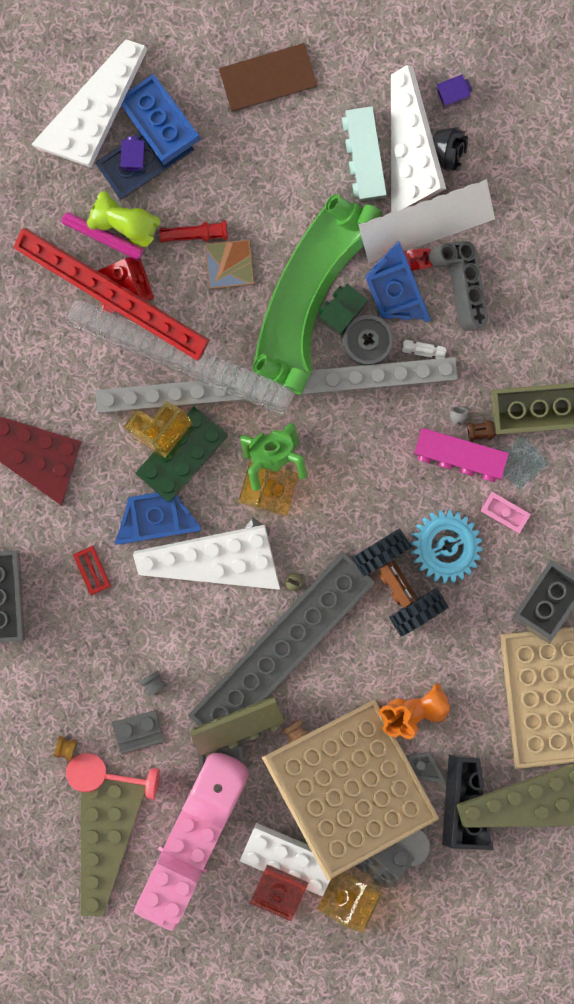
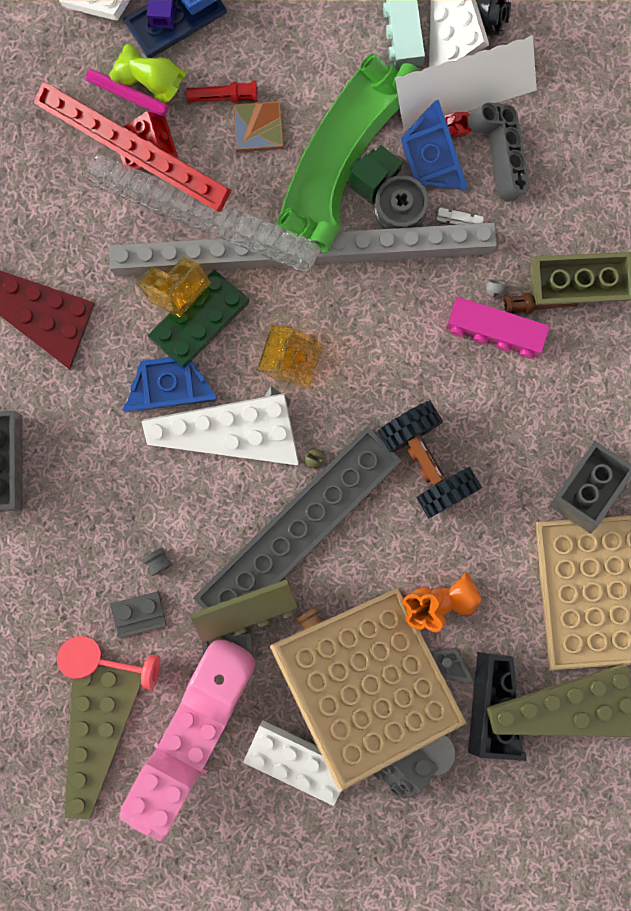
camera: 10 degrees right, 5 degrees down
(65, 748) = (57, 629): pearl gold wheel -> none
(99, 588) = (105, 457): red tile -> none
(279, 892) = (285, 800): clear red plate -> none
(285, 444) = (295, 316): bright green plate -> none
(350, 901) = (364, 814): clear yellow slope -> none
(426, 554) = (461, 435): medium azure gear -> none
(505, 512) = (543, 391): bright pink plate -> none
(523, 462) = (563, 340): clear light blue piece -> none

